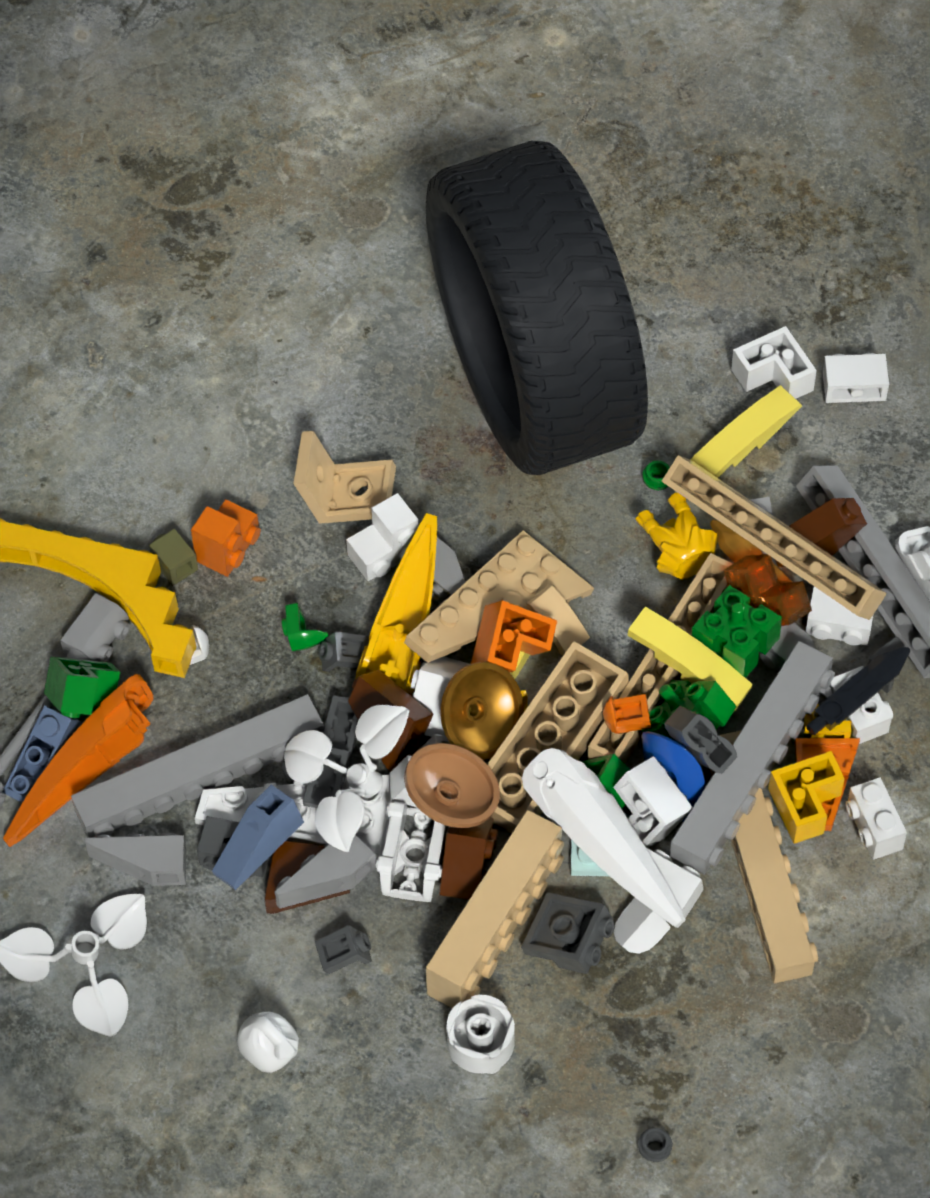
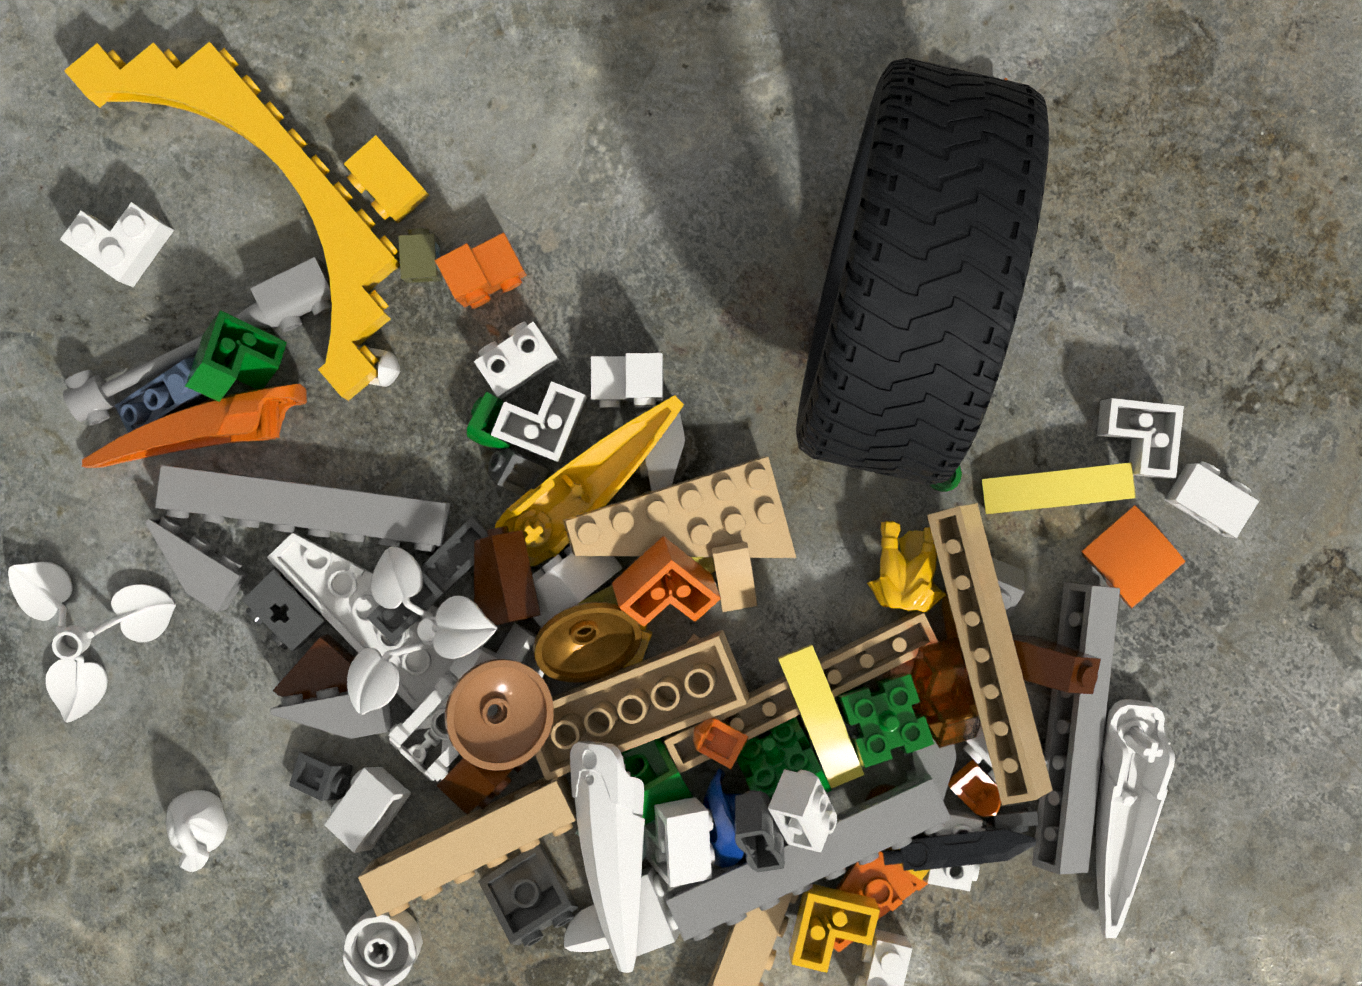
camera: 35 degrees right, 30 degrees up
(114, 519) = (385, 179): none -> yellow brick
(258, 835) = (295, 636): sand blue slope -> none
(292, 578) = (515, 359): none -> white brick
(332, 487) = (613, 281): tan bracket -> none
(346, 607) = (549, 430): none -> white brick
(397, 942) = (367, 808): none -> white brick
(716, 700) = (803, 810): none -> white brick
(833, 443) = (1133, 556): none -> orange slope
(845, 654) = (976, 790): none -> orange plate

